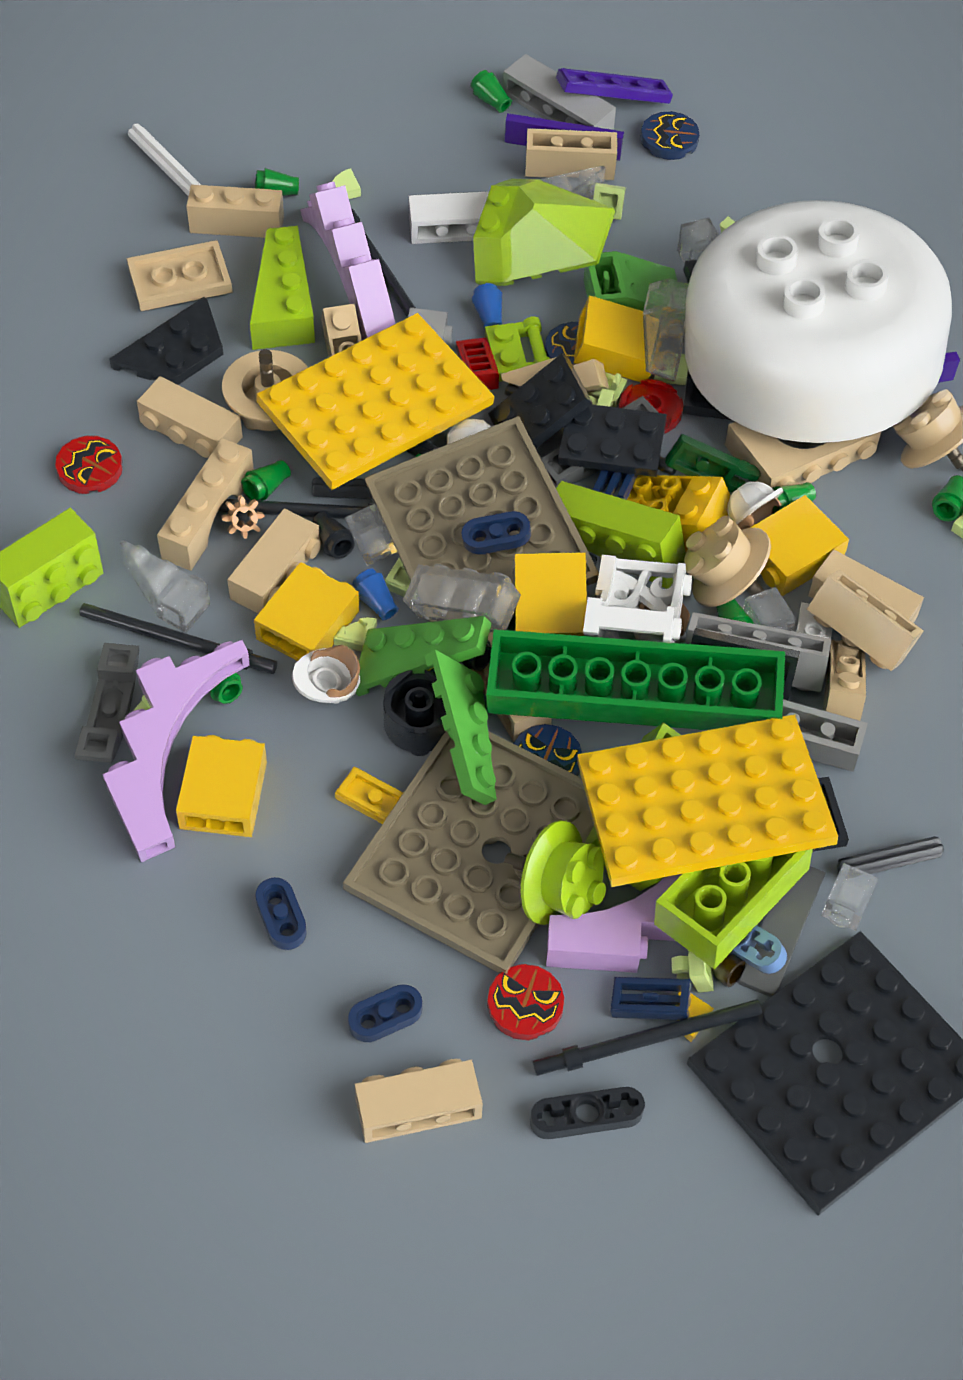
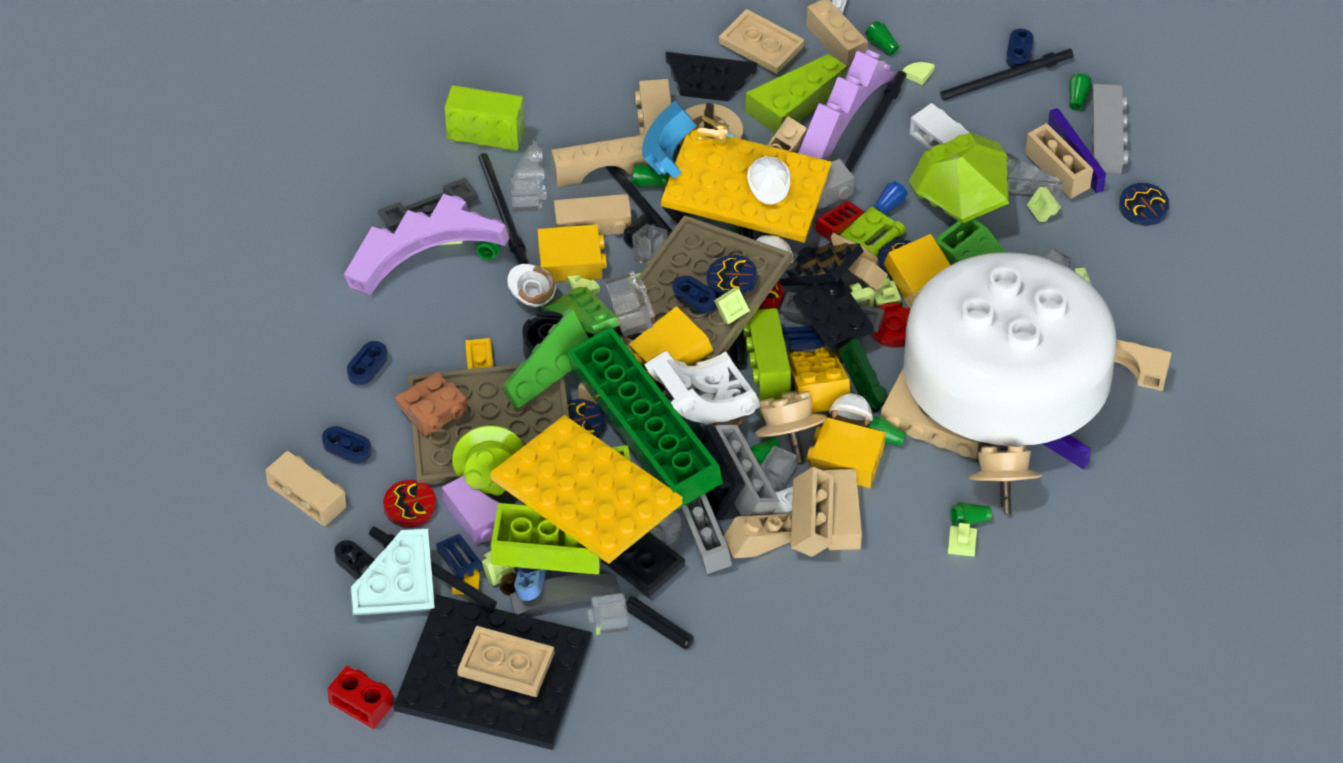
camera: 55 degrees right, 5 degrees down
(89, 464) = (583, 93): red tile -> none
(222, 786) = (422, 287): yellow brick -> none
(241, 525) = (615, 179): light nougat gear -> none
(247, 422) = (664, 137): none -> dark azure arch
(304, 370) = (719, 135): none -> pearl gold piece
(375, 593) = (615, 268): blue cone -> none
(391, 99) = (1019, 47): none -> dark blue plate
(405, 371) = (769, 180): none -> white piece
(414, 882) = (432, 403): none -> nougat plate
(428, 91) = (1049, 60): none -> black bar
(502, 485) = (731, 273): none -> dark blue tile
(548, 509) = (731, 305): none -> yellowish green tile
(614, 85) = (1146, 147): dark purple tile -> none
(645, 1084) = (397, 578): none -> light aqua plate
(790, 1249) = (356, 701): none -> red brick
(858, 1044) = (506, 661): none -> tan plate

